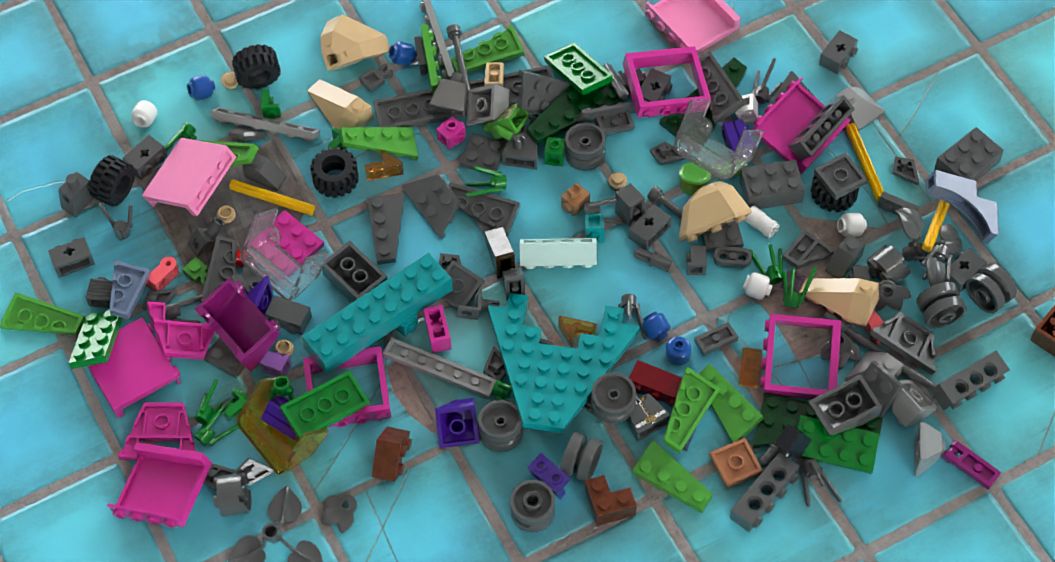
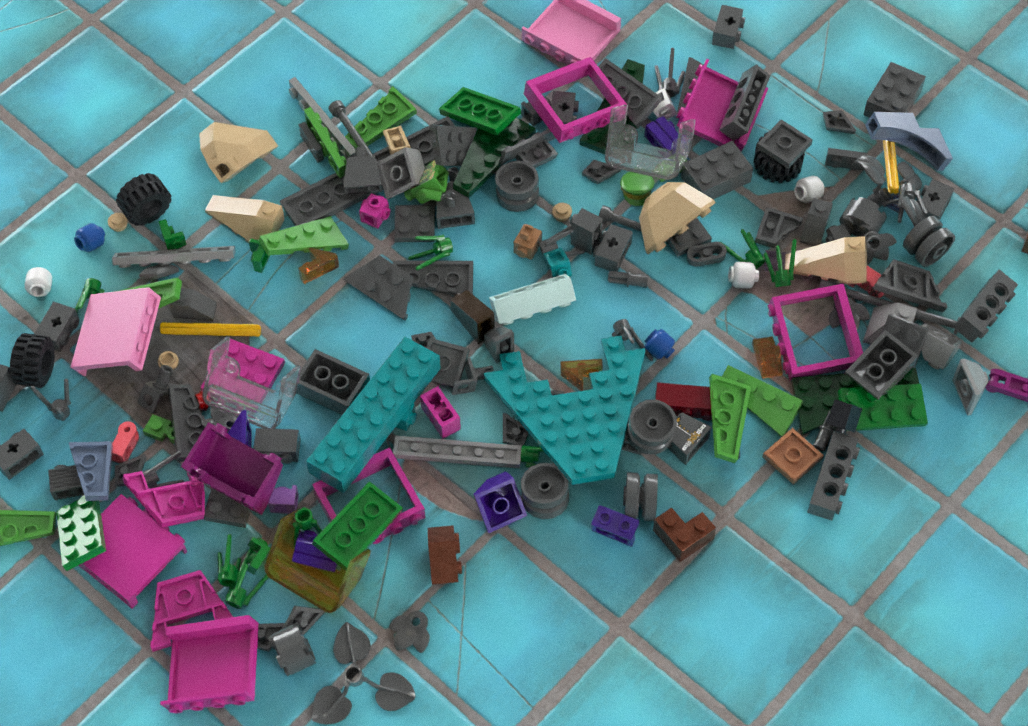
camera: 20 degrees left, 0 degrees up
(284, 347) = (286, 479): tan plate -> none
(332, 160) = (265, 271): black tyre -> none
(374, 79) = (271, 179): dark grey plate -> none
(386, 224) = (341, 321): dark grey wing -> none
(402, 53) = (291, 145): blue head -> none
(532, 506) = (610, 562): dark grey wheel -> none
(554, 151) = (488, 200): green bracket -> none
(616, 84) = (526, 117): dark grey axle -> none
(669, 476) = (731, 489): bright green wing -> none
(678, 351) = (692, 361): blue head -> none
(696, 260) = (673, 267): dark grey brick -> none
(716, 339) = (723, 339): dark grey plate -> none
(762, 222) = (724, 212): white piece -> none
(813, 471) = (870, 441): dark grey plant -> none
(864, 160) = (774, 102): yellow axle -> none
(865, 107) = (779, 74): light grey slope -> none
(991, 288) = (968, 211): dark grey wheel -> none

